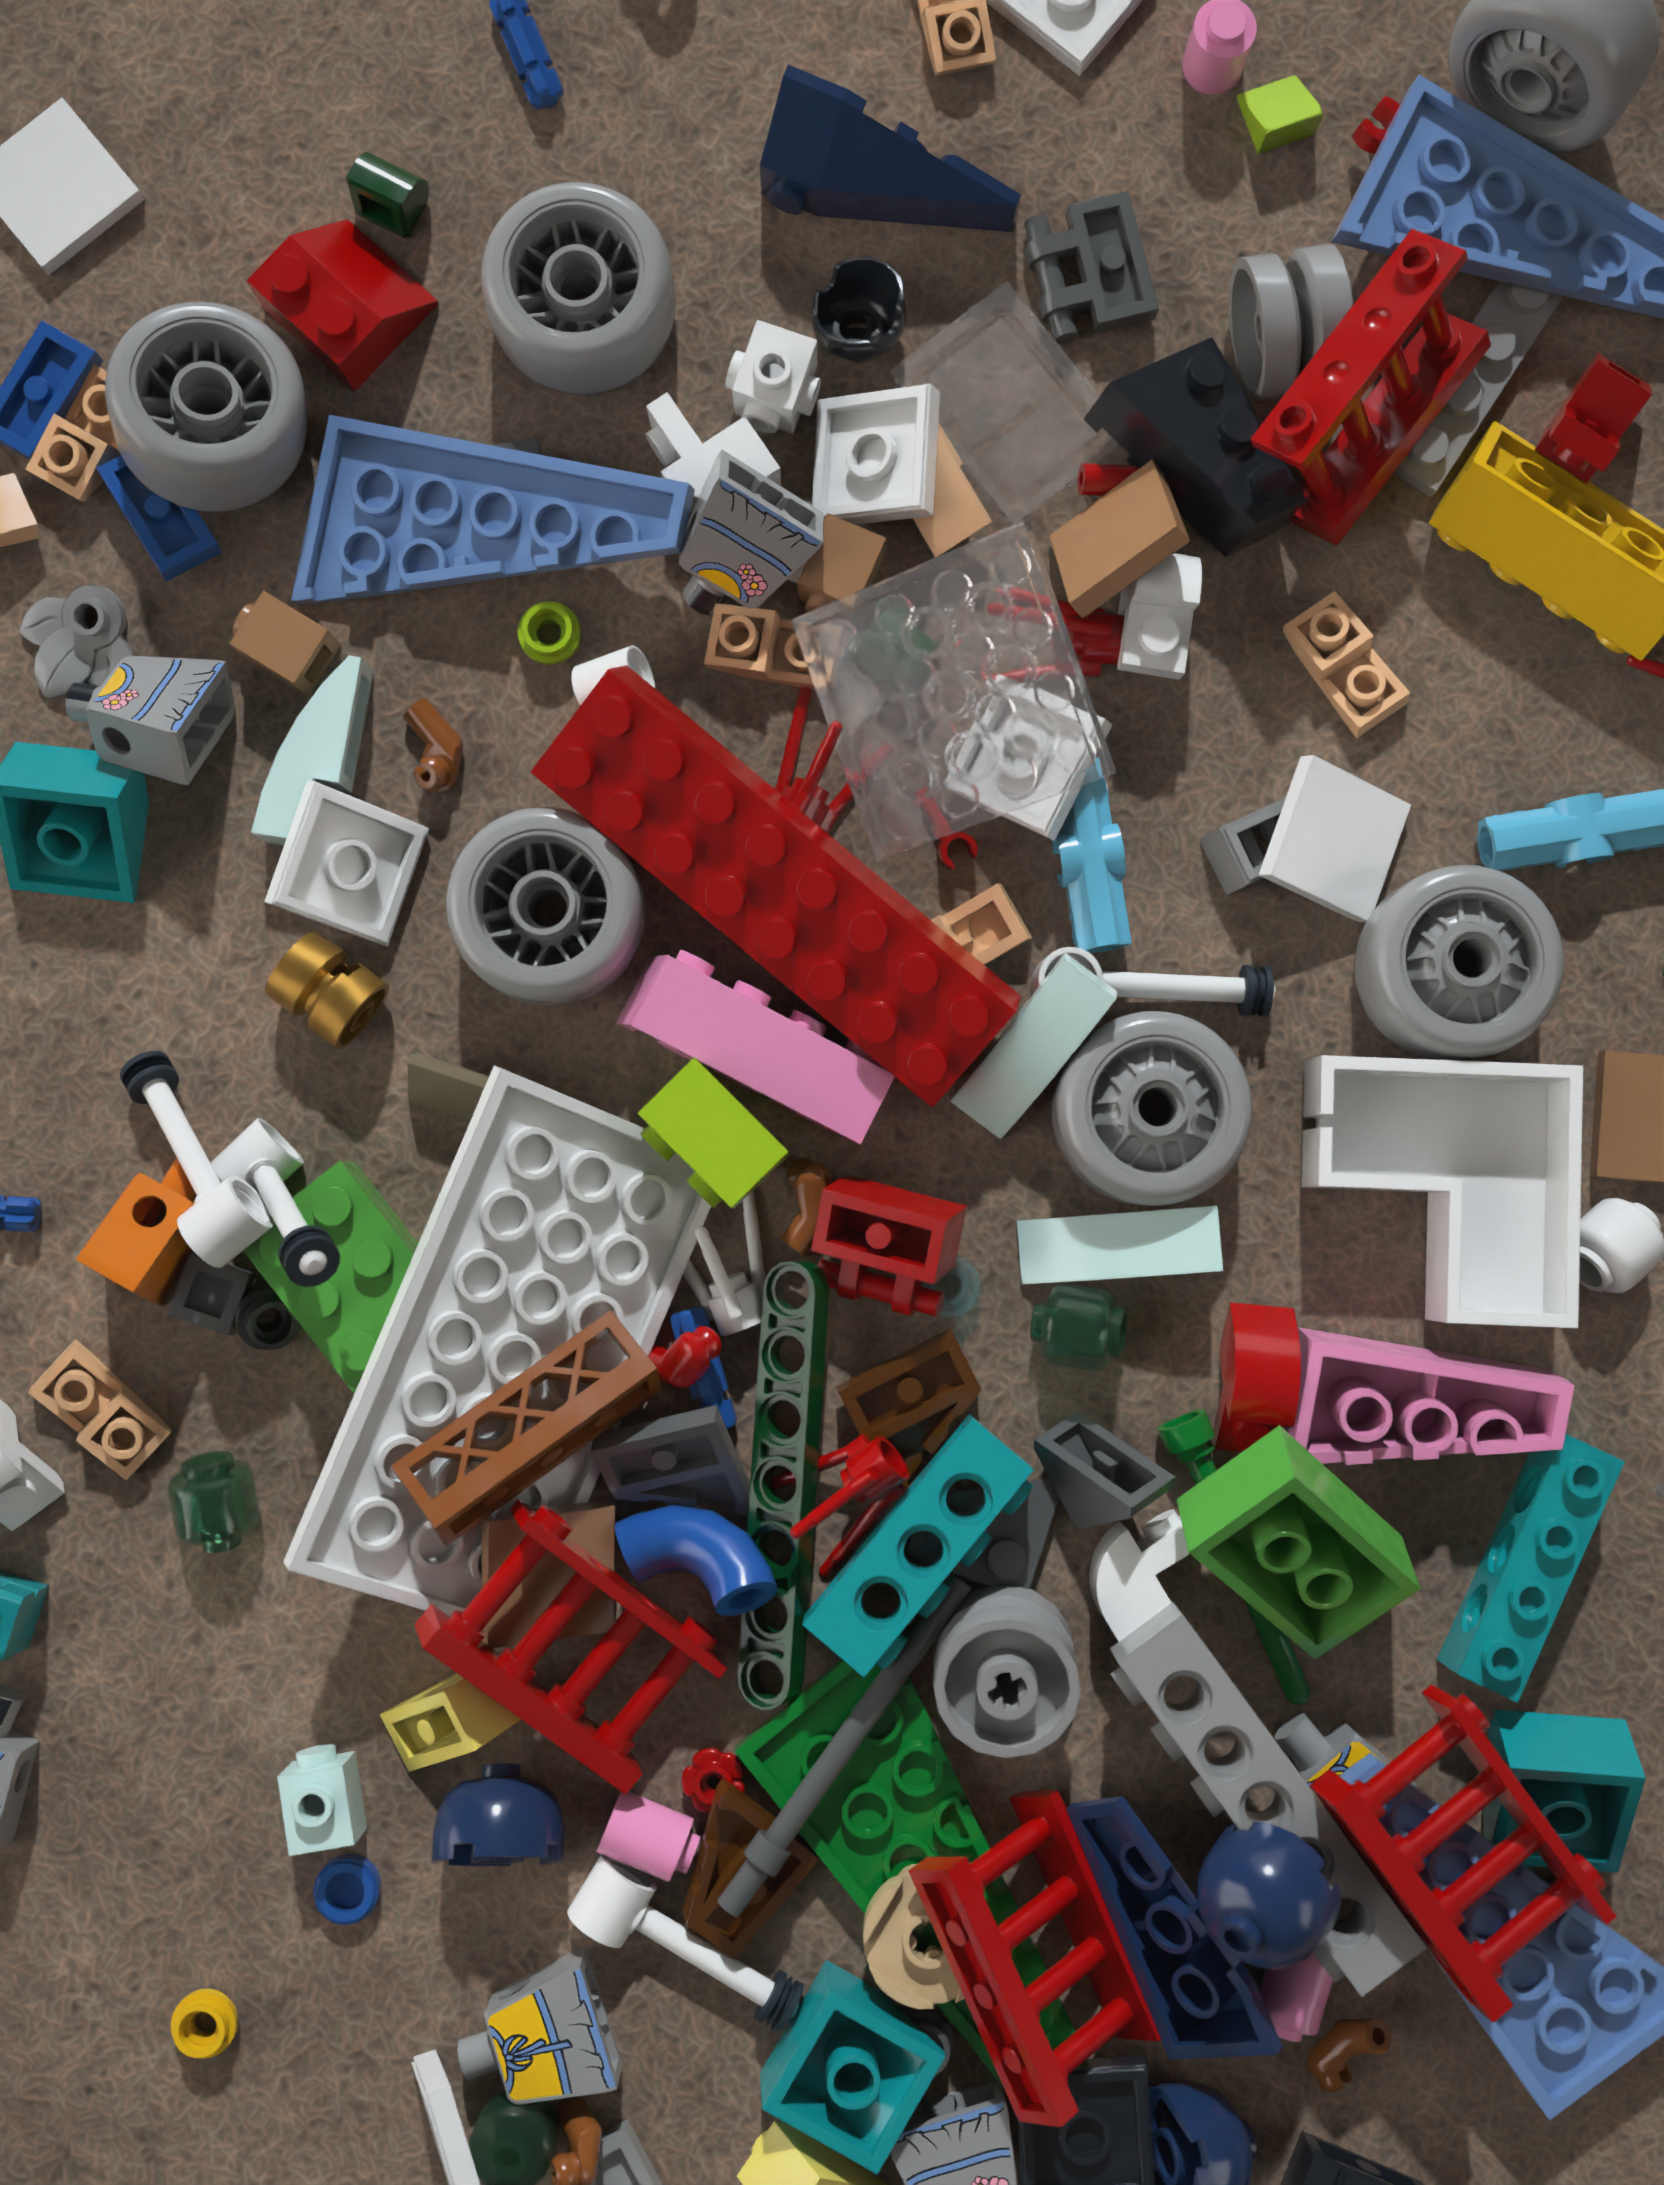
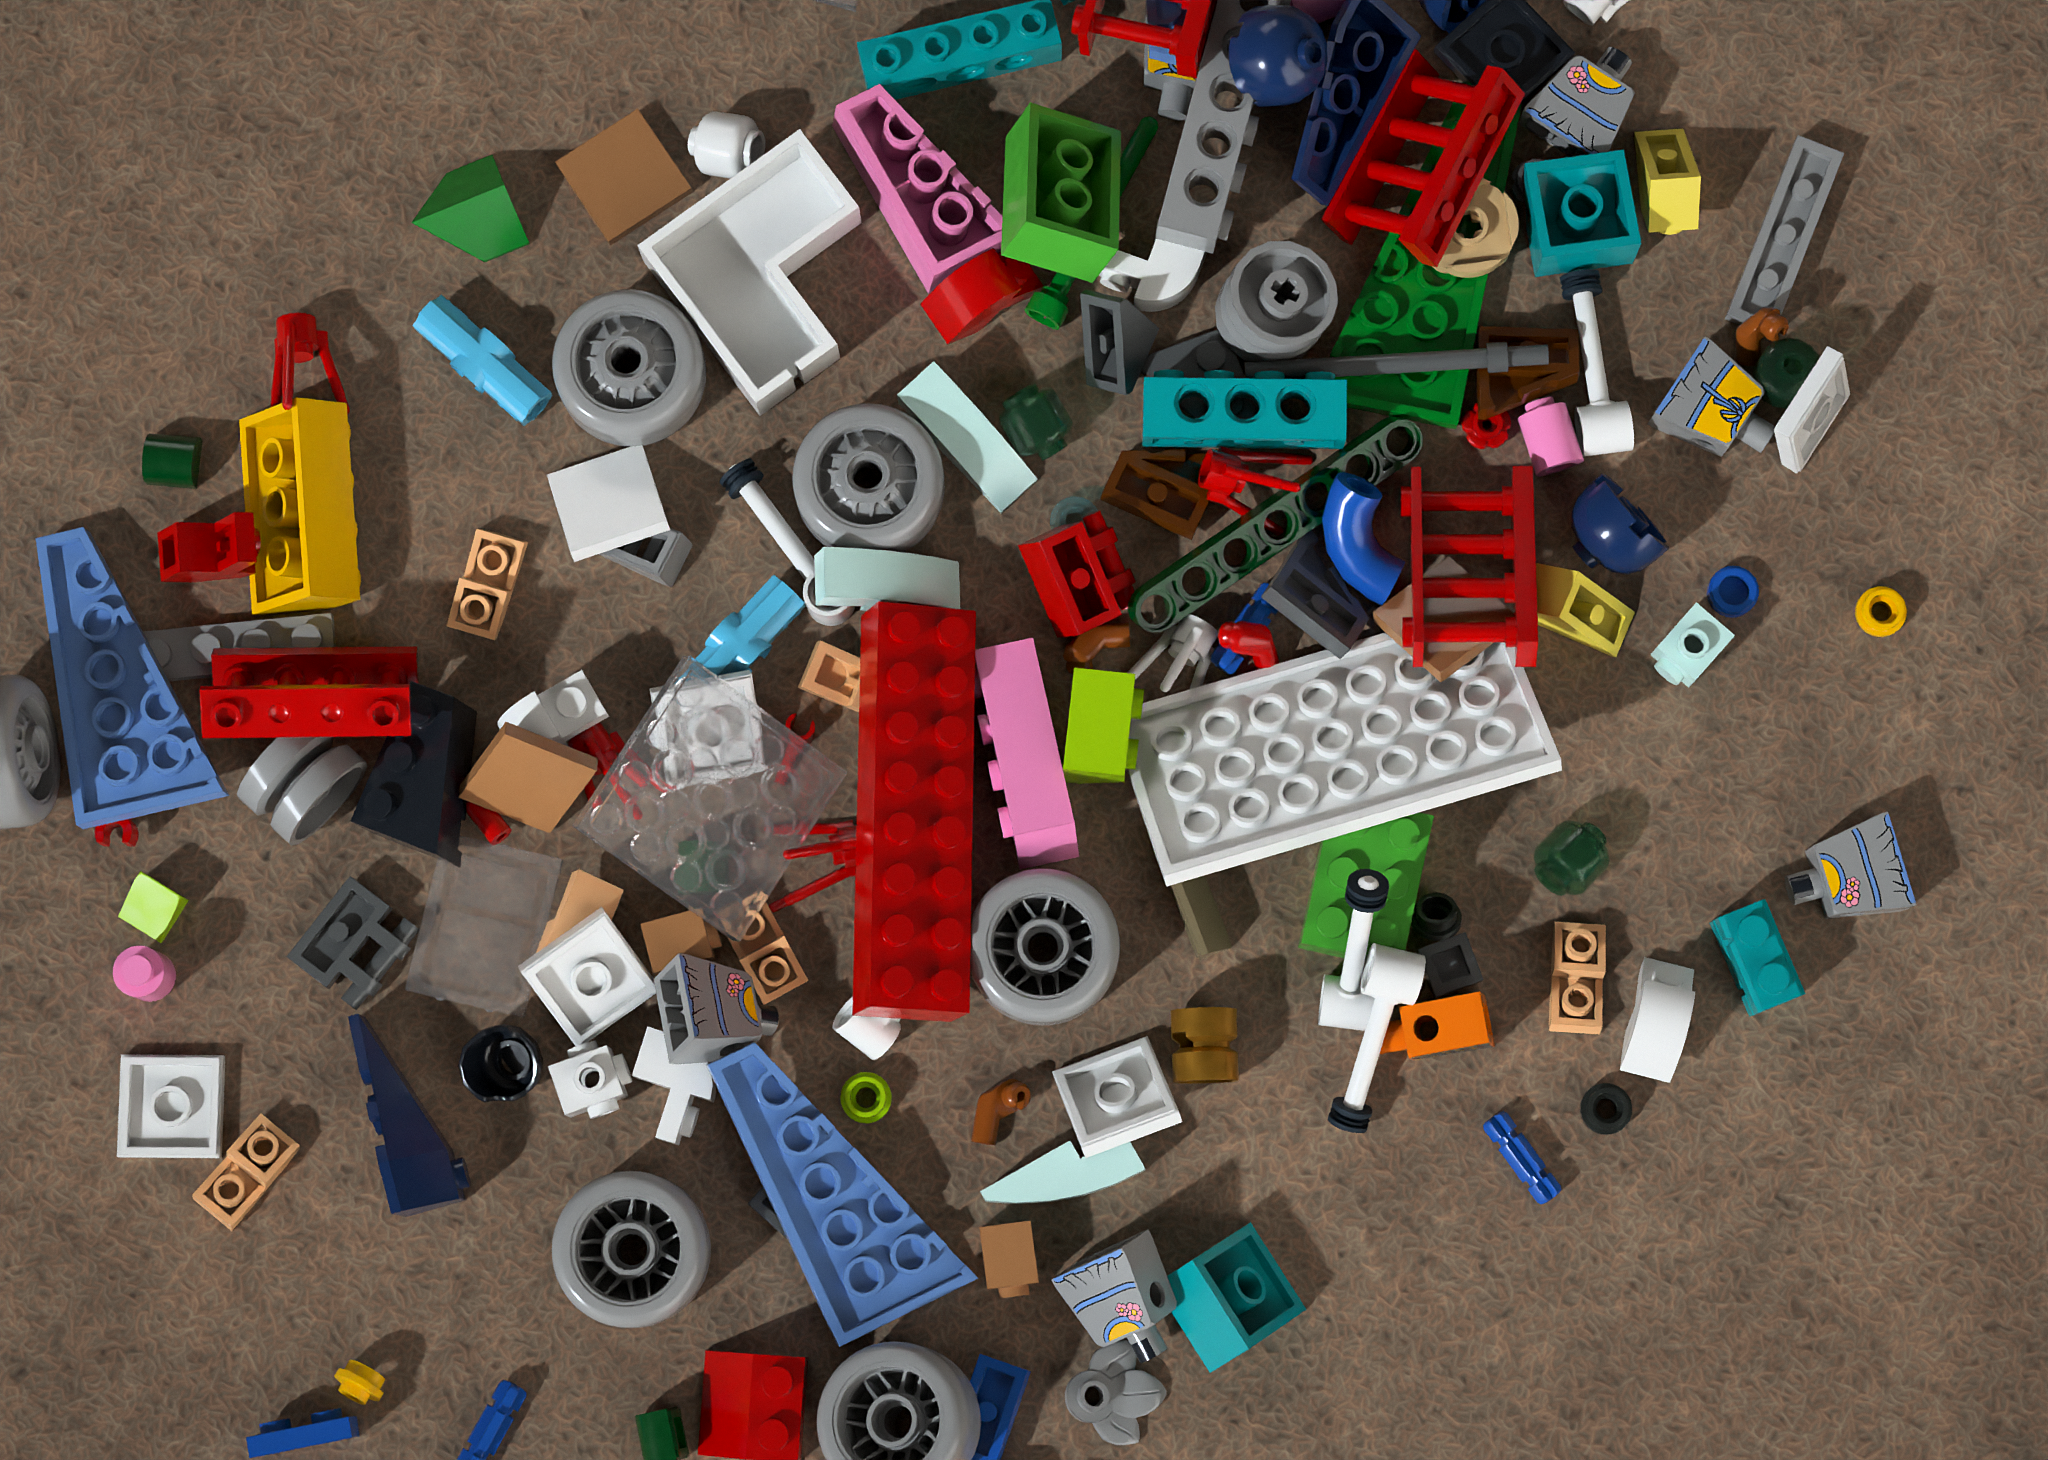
camera: 125 degrees left, 5 degrees down
(540, 1448) = (1365, 675): dark orange fence -> none

